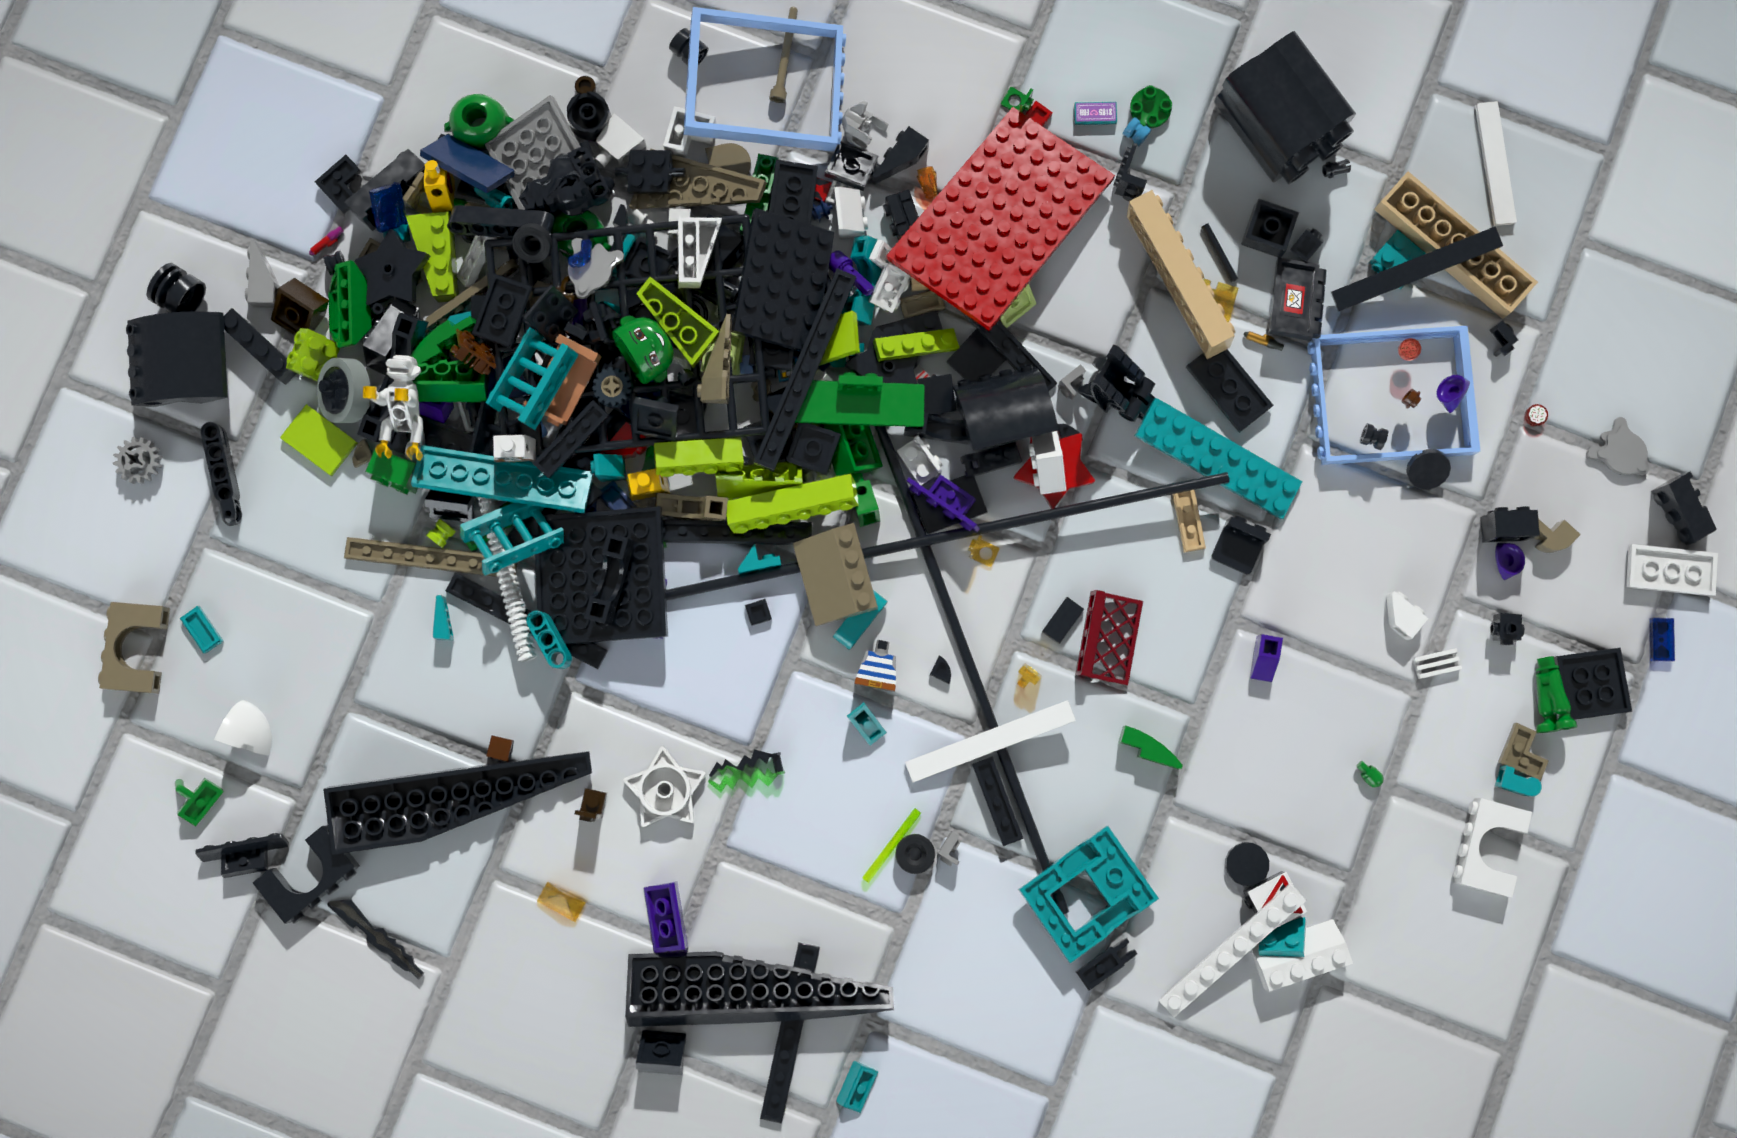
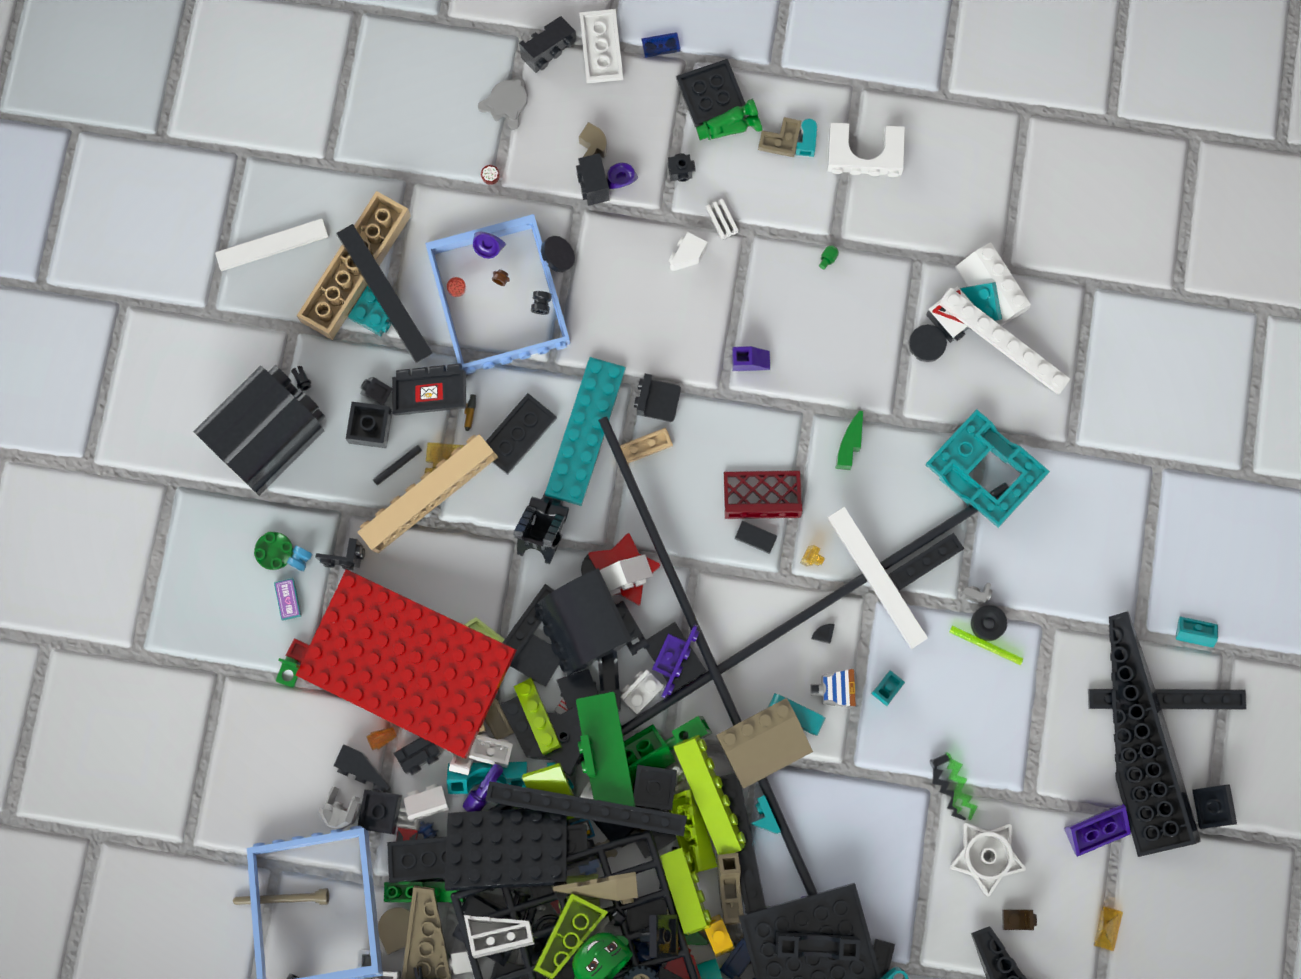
camera: 100 degrees left, 5 degrees down
(758, 612) = (809, 807): black tile -> none
(975, 547) = (710, 626): clear yellow bracket -> none
(1073, 378) = (539, 571): light grey bracket -> none
(1104, 965) = (1041, 443): black hinge -> none
(1505, 335) = (425, 211): black bracket -> none

